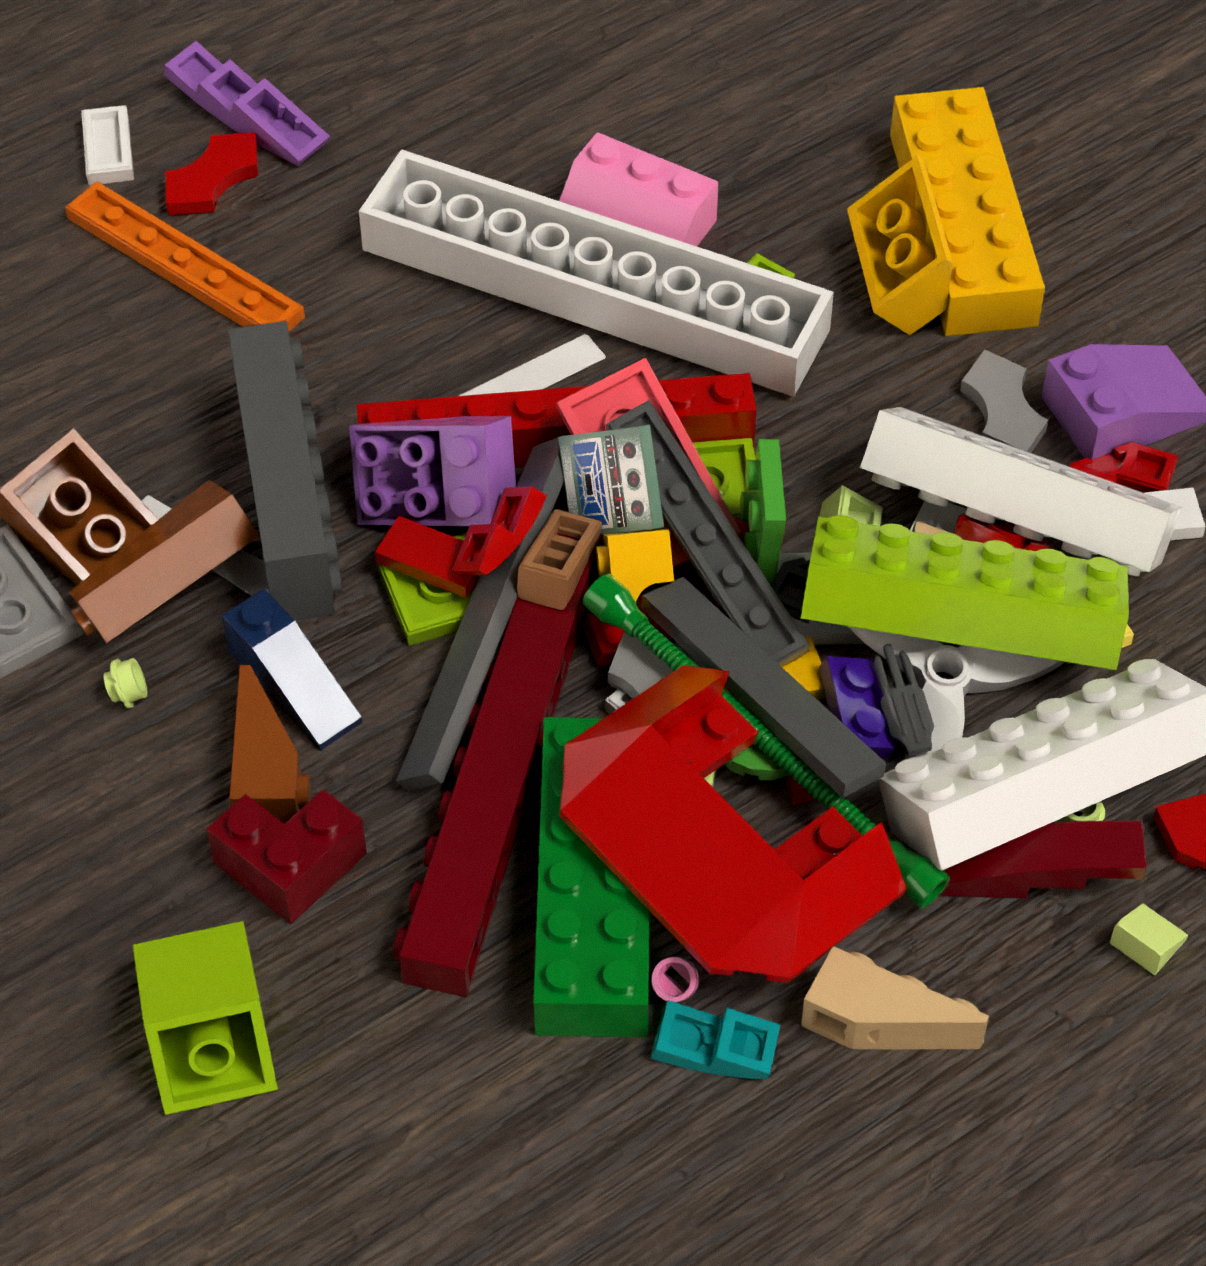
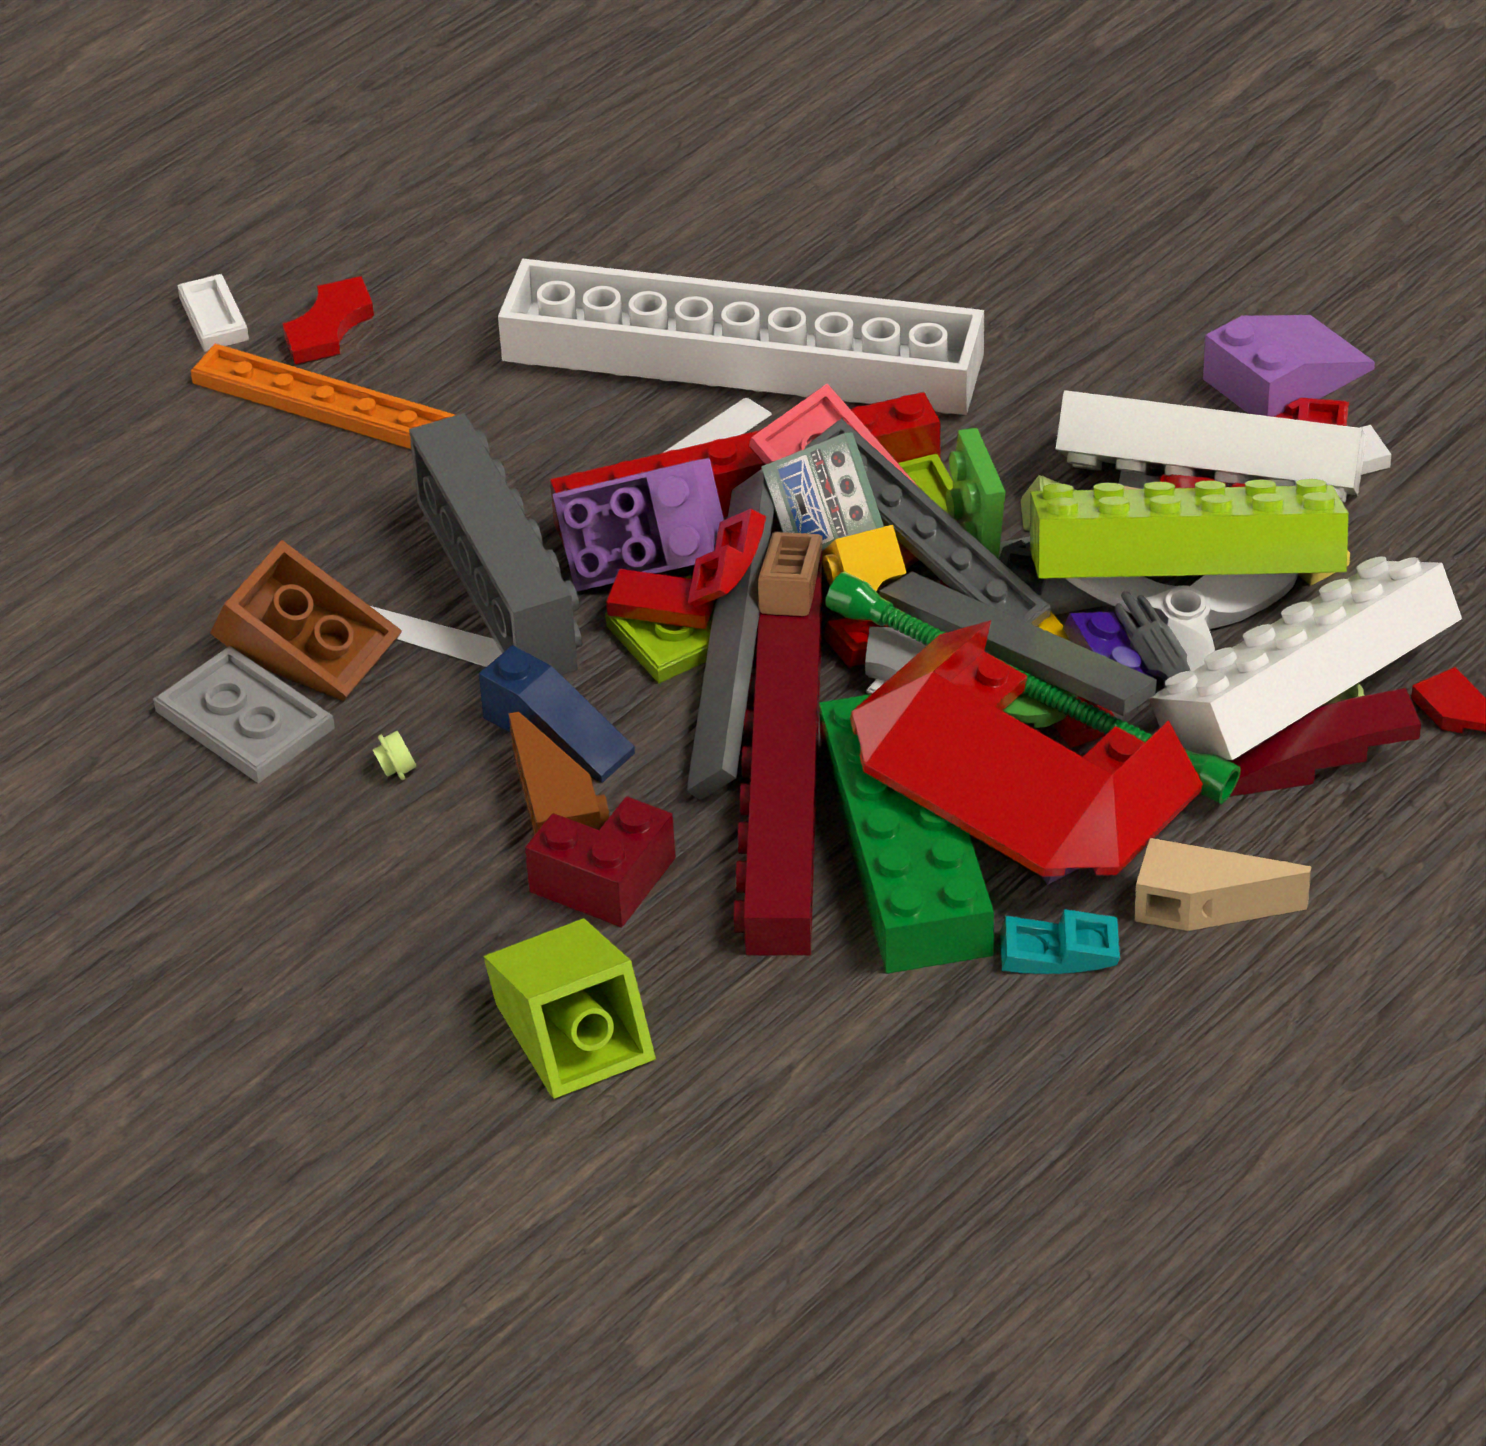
camera: 10 degrees left, 10 degrees down
(162, 561) = (403, 642): slope -> none
(246, 105) = (342, 254): medium lavender slope -> none
(641, 190) = (766, 256): bright pink slope -> none
(667, 987) = (1014, 888): bright pink hinge -> none
(903, 248) = (1039, 265): yellow slope -> none
(994, 263) = (1085, 231): yellow brick -> none
(997, 391) = (1161, 379): light grey tile -> none
(1147, 938) = (1434, 793): yellowish green slope -> none

